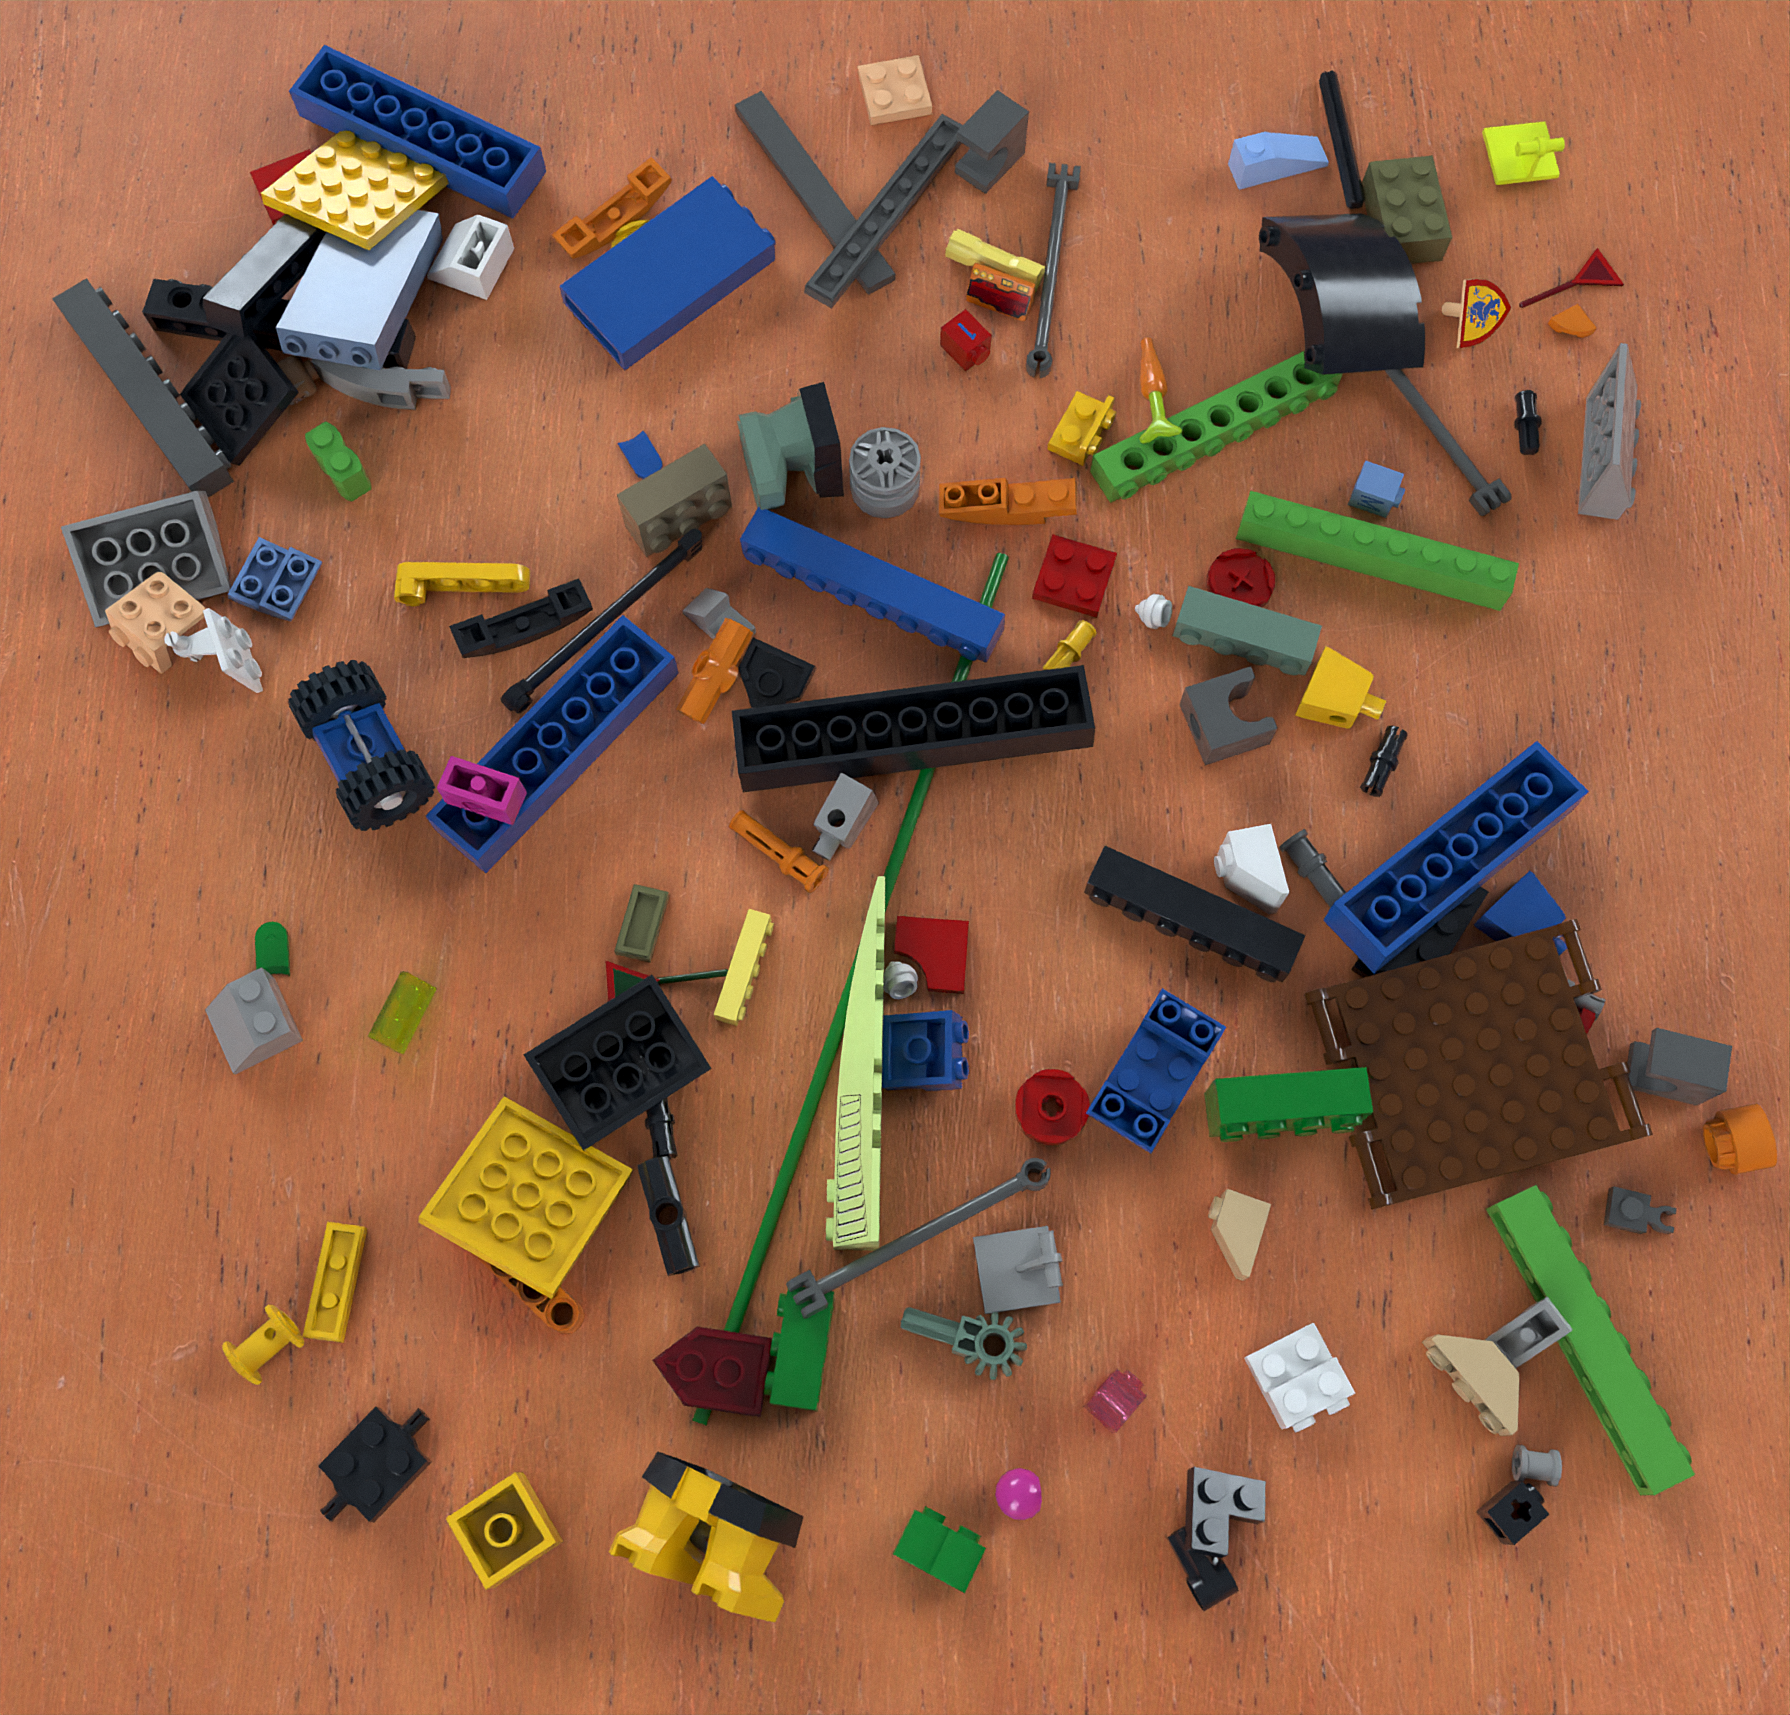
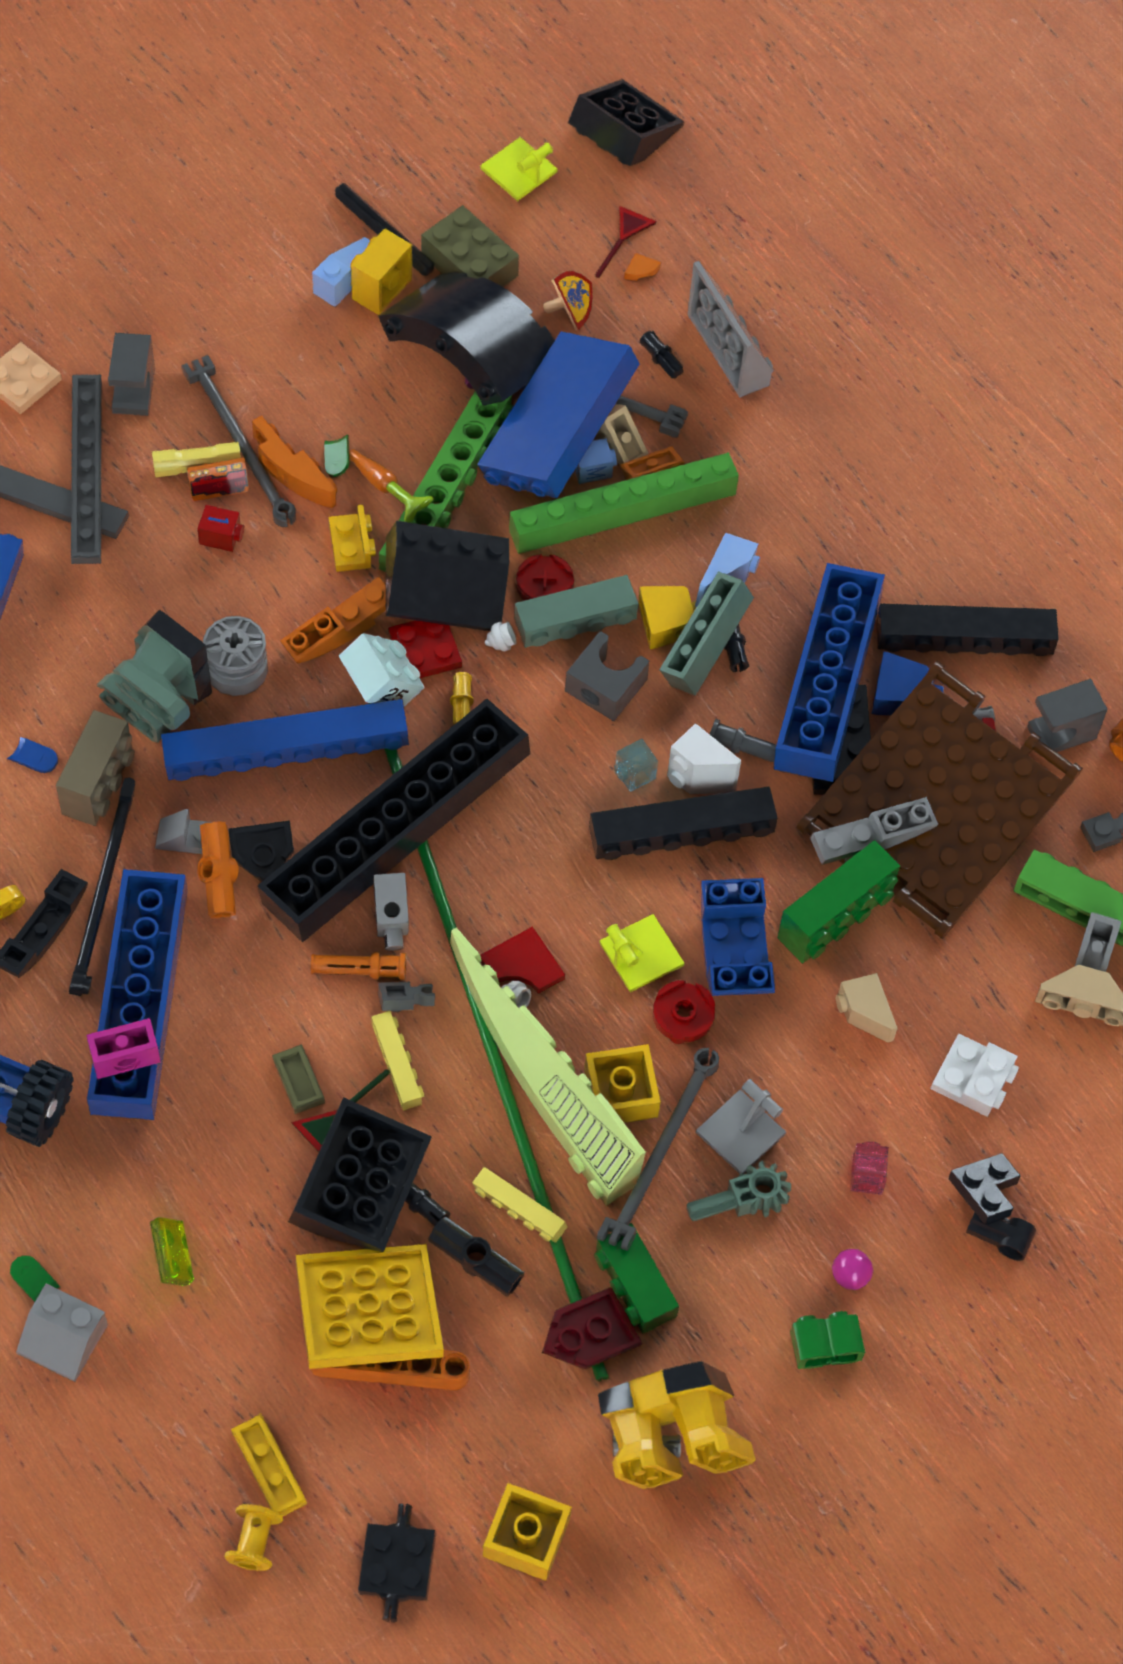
camera: 40 degrees left, 10 degrees down
(746, 1194) = (519, 1205): none -> light yellow piece
(793, 906) = (401, 996): none -> dark grey plate
(924, 1051) = (575, 1025): blue plate -> none
(930, 1142) = (625, 1081): none -> yellow brick
(1007, 573) = (381, 669): none -> light aqua brick
(1055, 1018) = (641, 952): none -> neon yellow plate
(1078, 322) = (292, 470): none -> orange slope
(1130, 336) = (336, 456): none -> piece
(1139, 517) = (446, 575): none -> black slope
(1188, 824) = (636, 765): none -> clear light blue brick
(1304, 176) = (381, 271): none -> yellow brick
(1358, 736) = (706, 633): none -> sand green brick
(1372, 421) = (558, 414): none -> blue brick
(1383, 1056) = (884, 826): none -> light grey slope
(1423, 478) = (622, 435): none -> tan slope
(1430, 683) = (733, 557): none -> light blue slope
(1435, 528) = (651, 463): none -> orange slope
(1641, 903) = (967, 629): none -> black brick
(1664, 163) = (623, 121): none -> black slope

